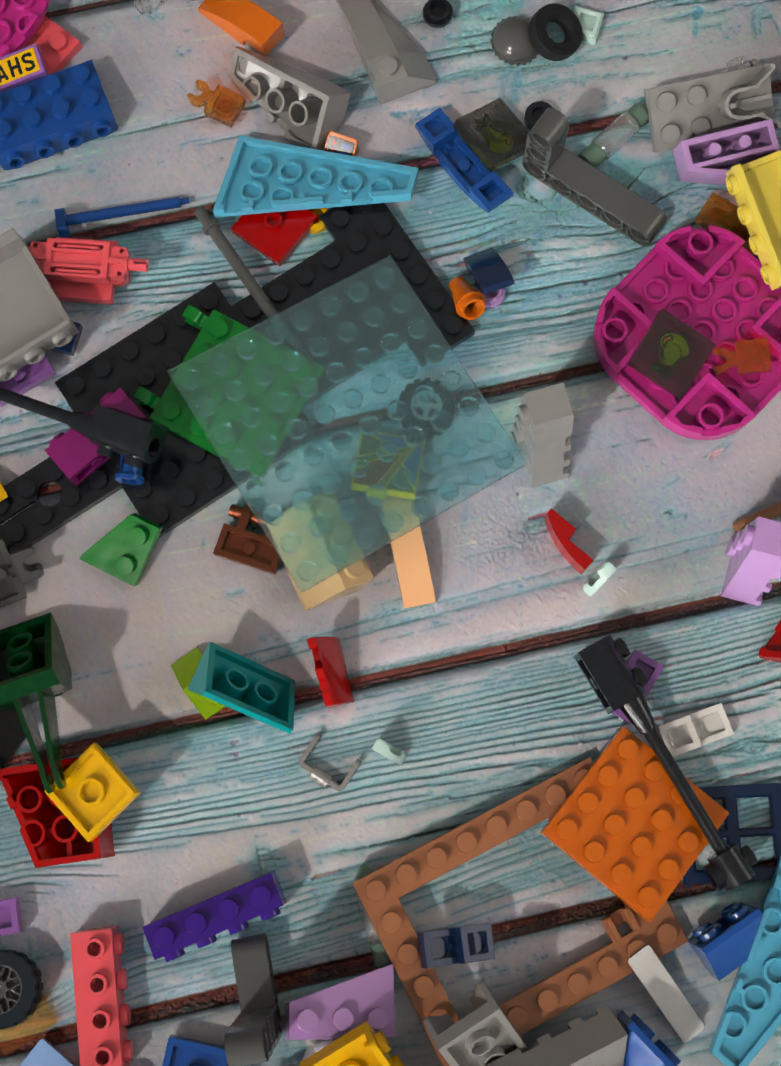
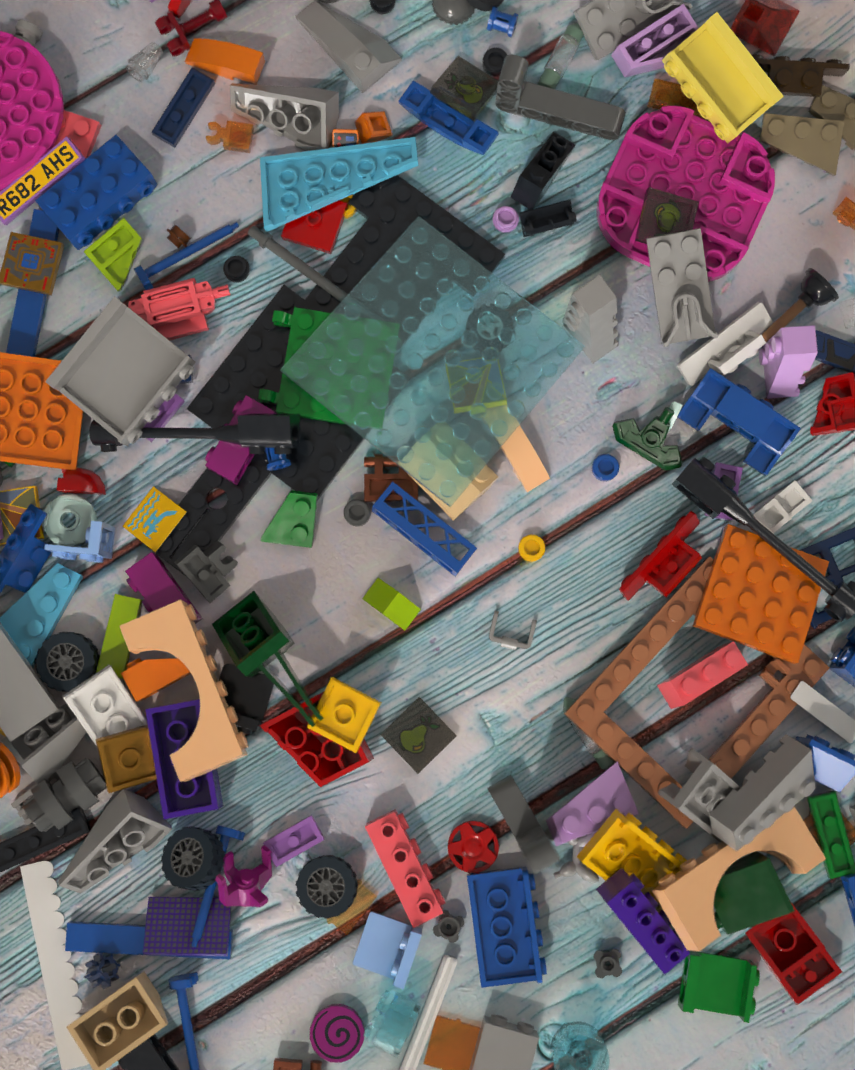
camera: 20 degrees left, 5 degrees up
(42, 186) = (115, 252): none -> lime wing
(117, 191) = (178, 237): none -> reddish brown plate
(168, 248) = (236, 269): none -> black plate
(176, 847) = (418, 735): none -> clear smoke tile
(177, 56) = (183, 107): none -> dark blue tile
(190, 1004) = (473, 846): none -> red wheel
(201, 564) = (357, 512): none -> dark grey tile
(216, 914) = (470, 772): dark purple brick -> none
(245, 687) = (429, 595): teal slope -> none
(256, 613) = (416, 536): none -> blue fence
(331, 671) = (490, 560): red slope -> none
(378, 143) = (373, 127): none -> orange slope
(386, 674) = (531, 548): none -> yellow tile
(389, 751) = (554, 605): light aqua tile -> none
(456, 945) = (659, 731): dark blue slope -> none
(467, 299) = (491, 231): orange cone -> none
(488, 271) = (500, 202): dark blue slope -> none
(504, 611) = (605, 467): none -> blue tile
(531, 895) = (702, 675): none -> coral brick
(536, 306) = (547, 218): none -> black hinge
(536, 747) = (667, 563): none -> red bracket
(549, 252) = (542, 171): none -> black slope
(561, 532) = (628, 392): red slope -> none
(562, 76) = (502, 22): none -> blue bush
(567, 597) = (650, 440): none -> dark green piece
(661, 433) = (681, 286): none -> light grey plate
(685, 603) = (743, 414): none -> blue bracket
(694, 521) = (734, 344): none -> white bracket
(749, 357) = (727, 203): clear orange plate -> none

